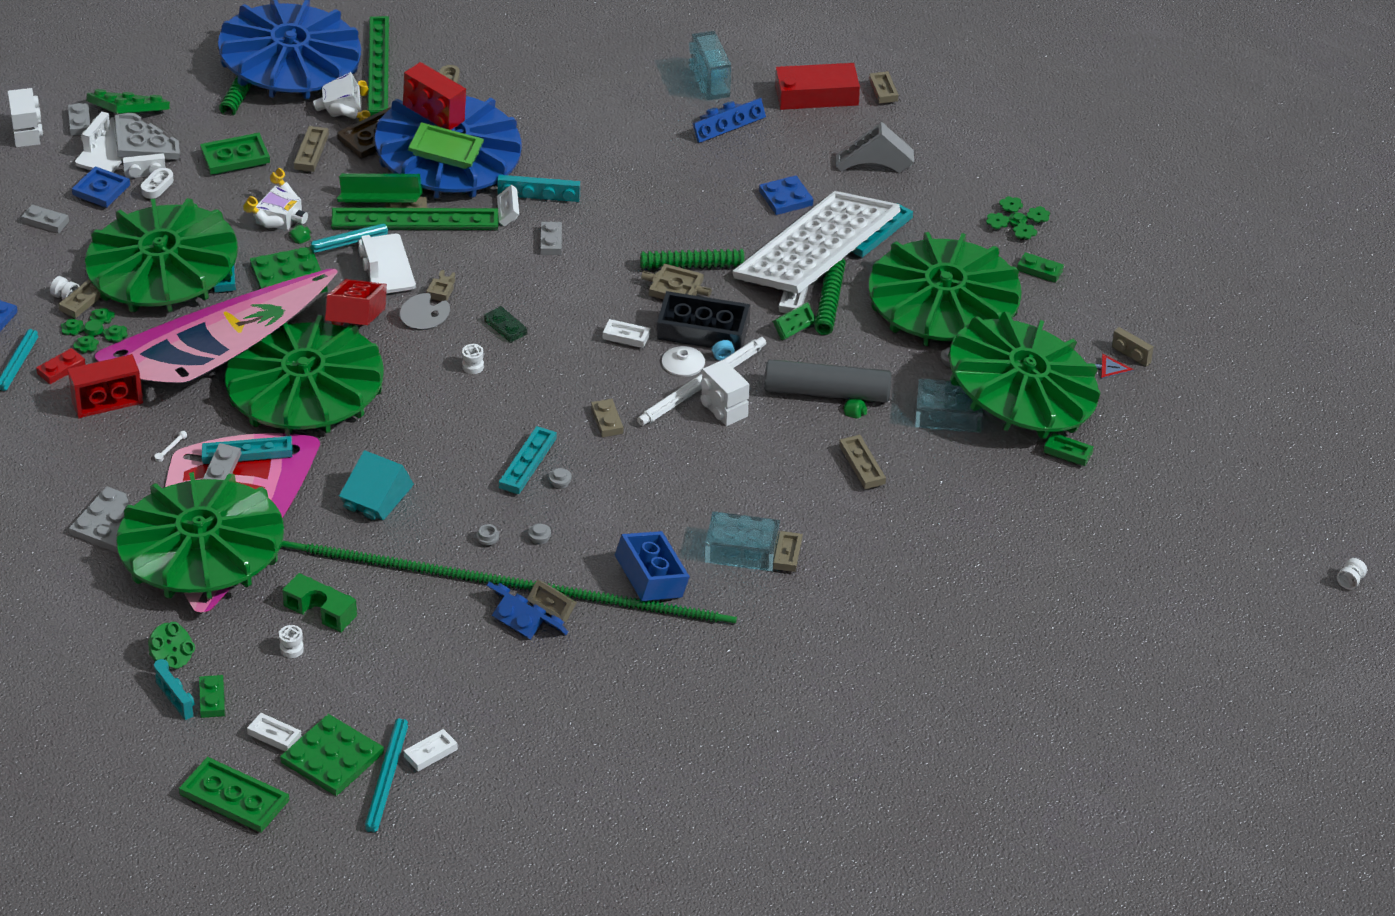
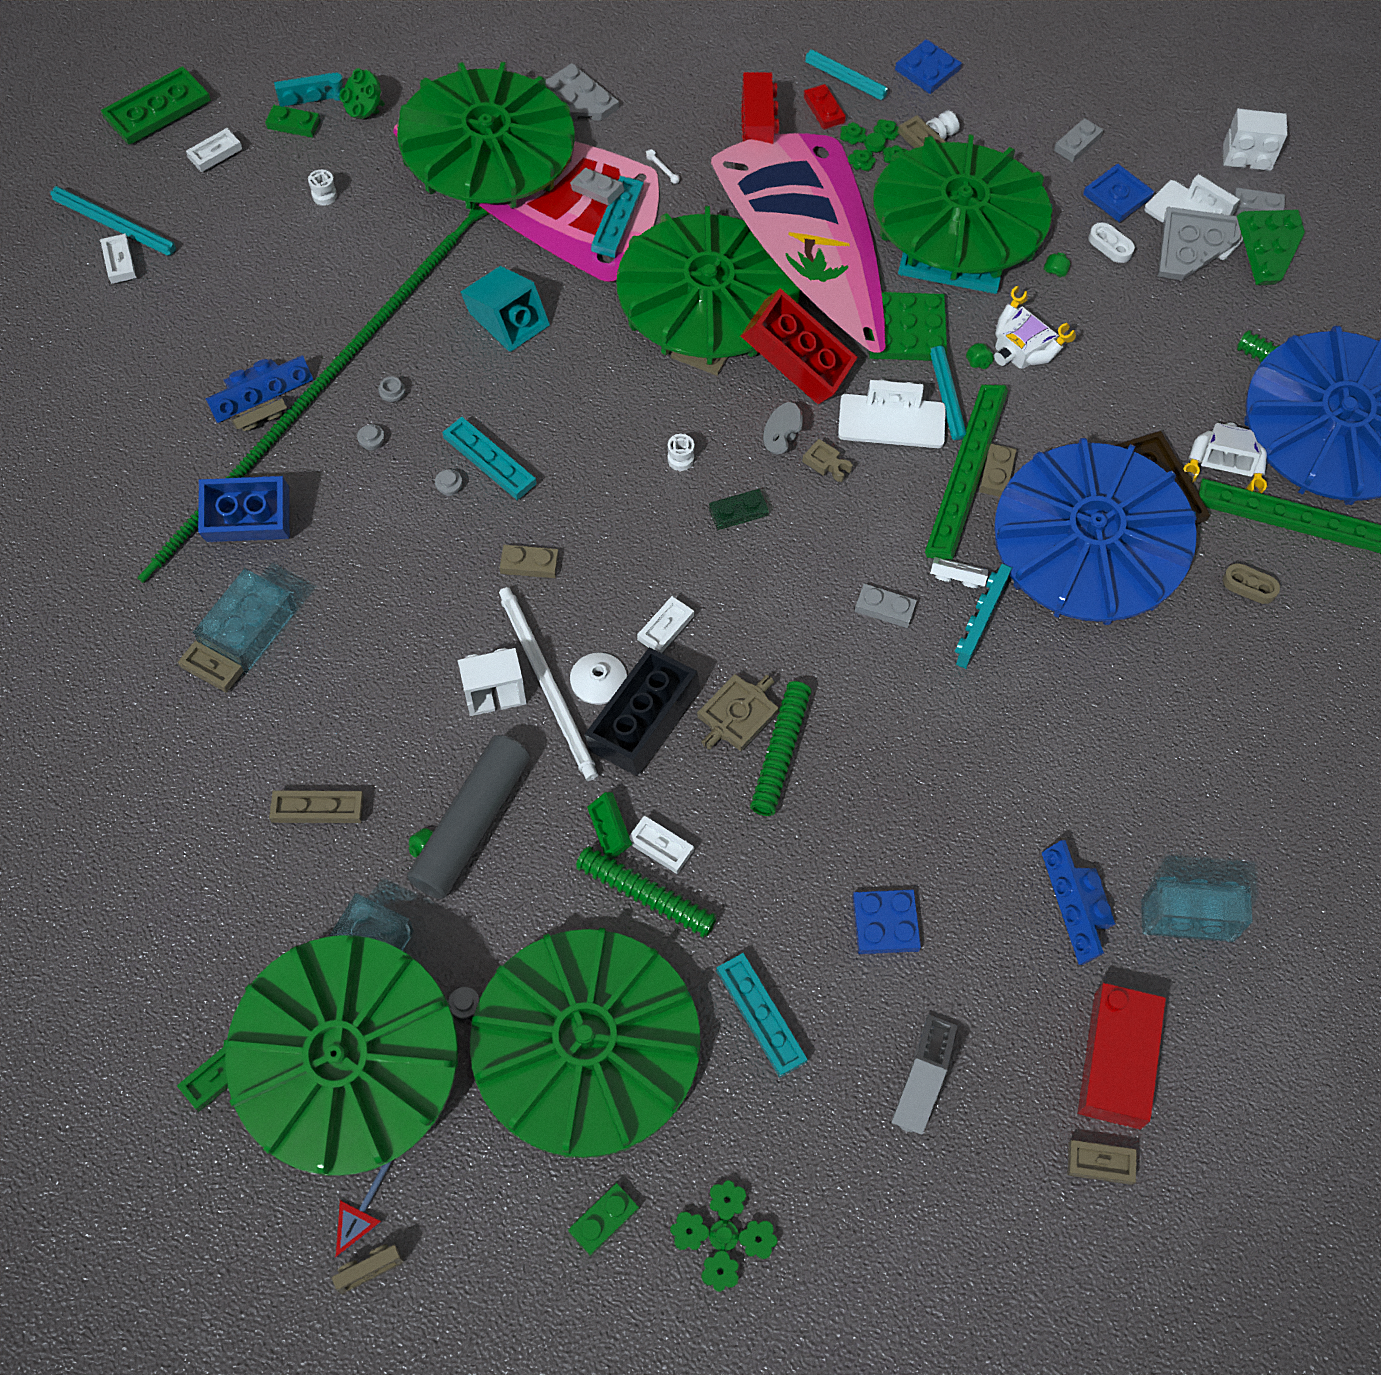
camera: 110 degrees right, 20 degrees up
(142, 165) = (1144, 229): white plate -> none
(235, 153) = (1149, 325): green plate -> none
(311, 148) = (1138, 400): dark tan plate -> none
(332, 754) = (165, 189): green plate -> none
(336, 607) = (350, 233): green arch -> none
(379, 187) = (1021, 439): green panel -> none
(434, 96) = (1141, 493): red brick -> none
(445, 146) = (1060, 502): bright green piece -> none
(722, 349) = (587, 717): medium azure tile -> none
(816, 241) = (750, 910): white plate -> none

